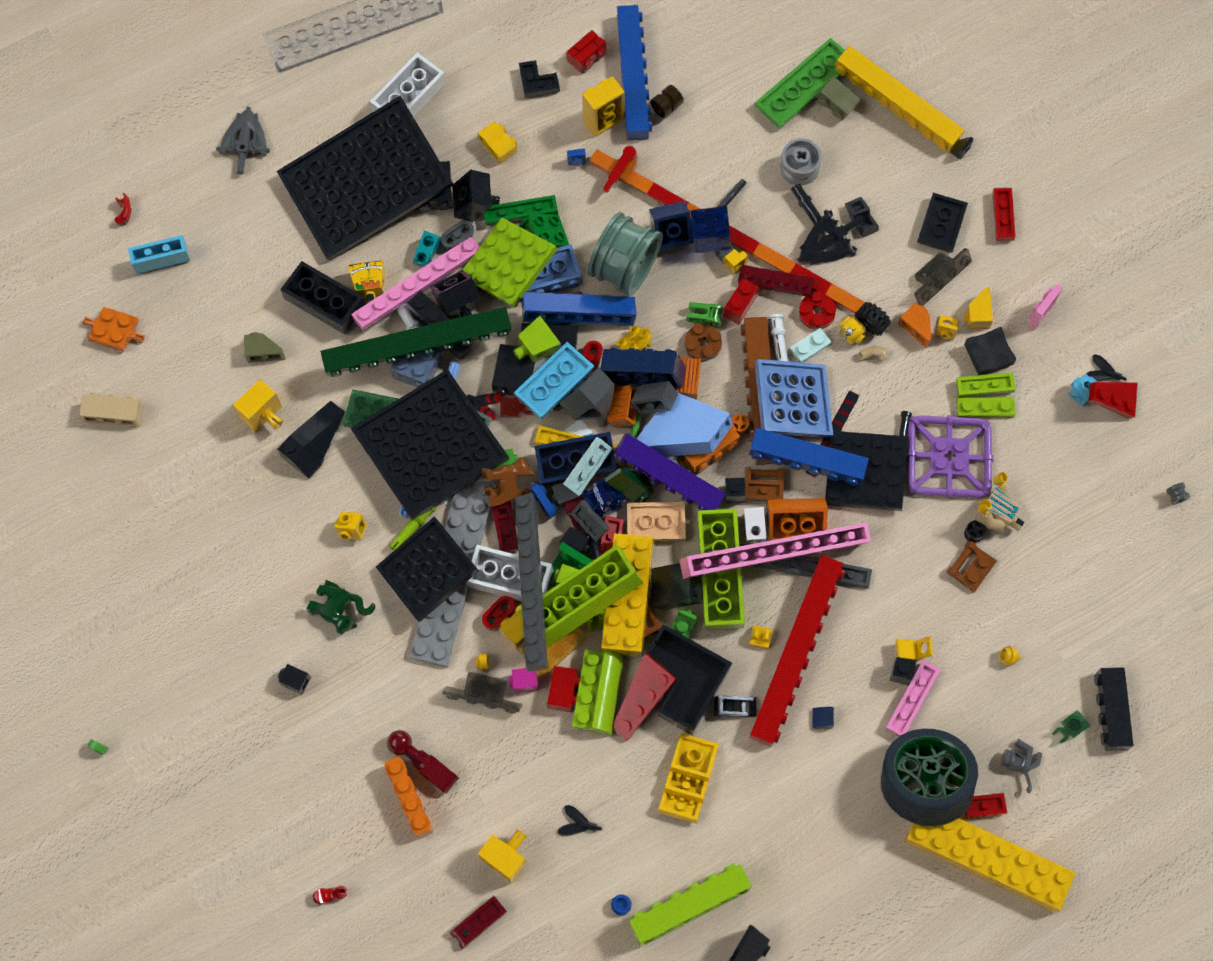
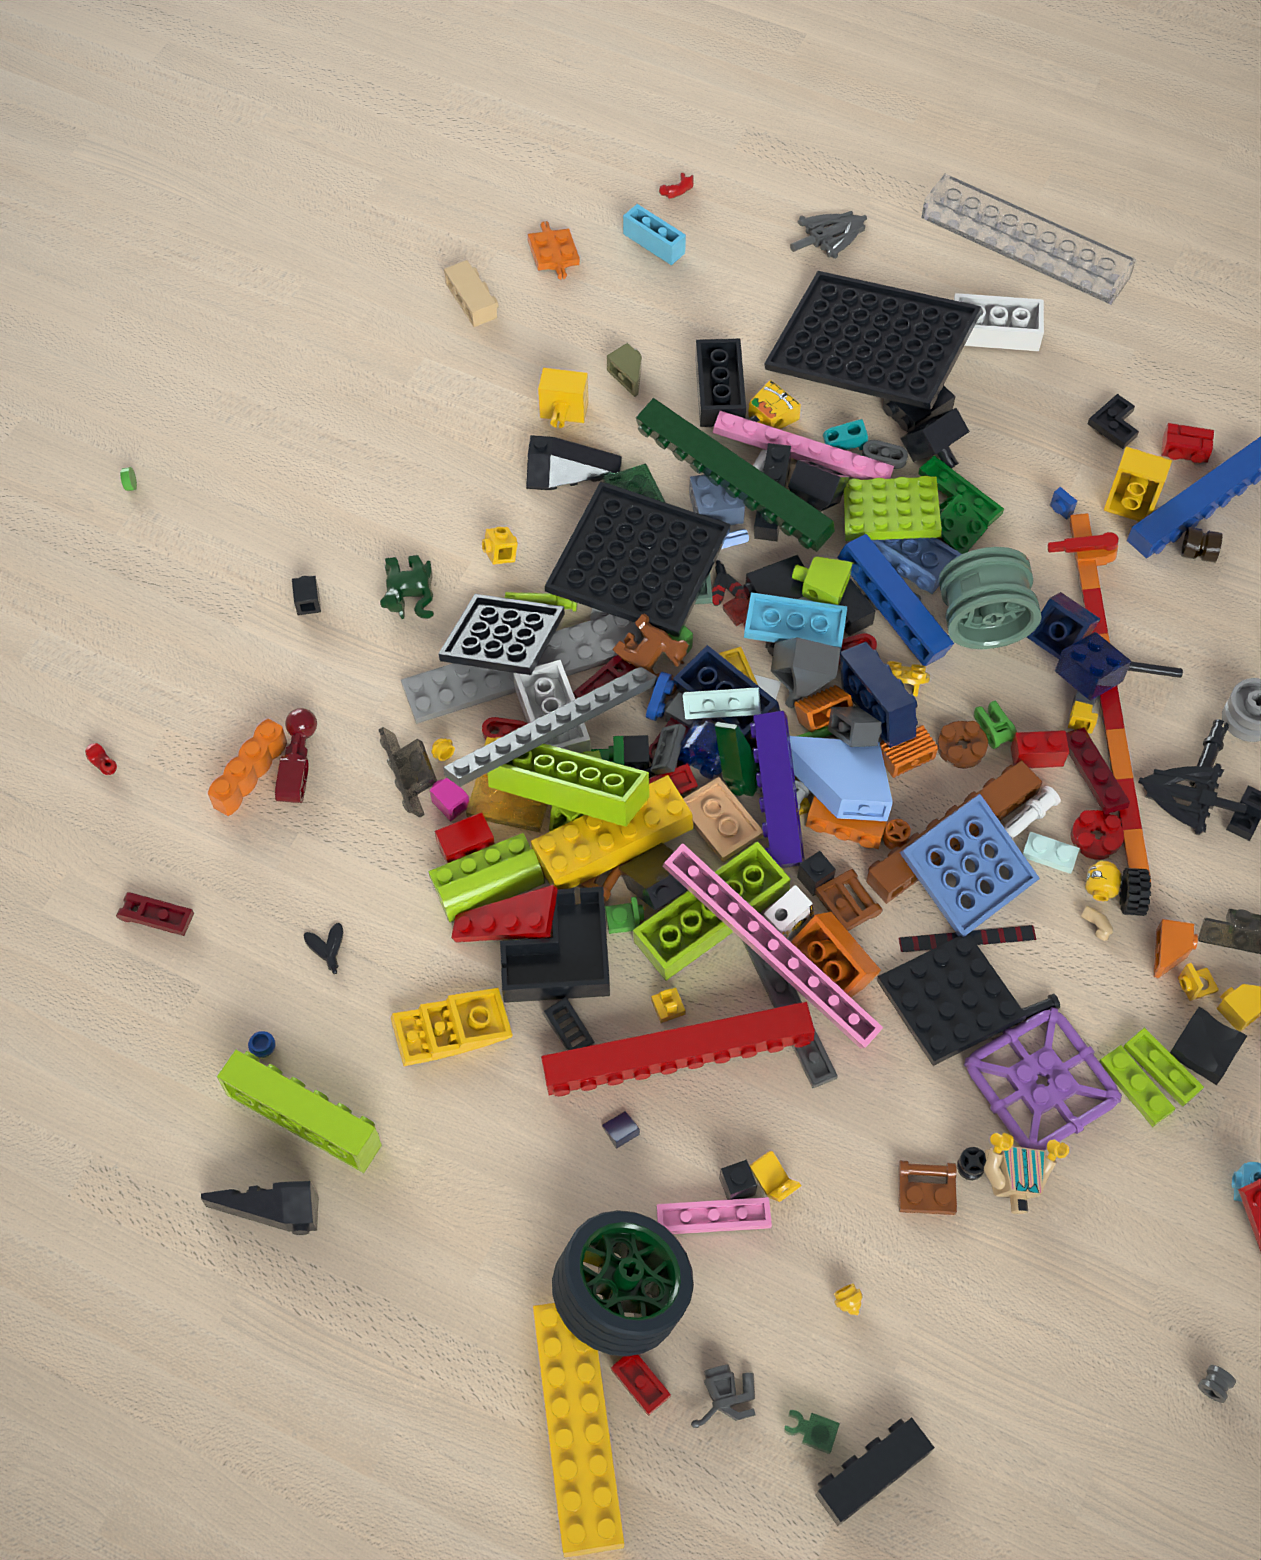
camera: 55 degrees right, 10 degrees down
(497, 141) = (1015, 427): yellow brick -> none
(504, 856) = (236, 890): yellow brick -> none
(808, 456) = (912, 919): blue brick -> none

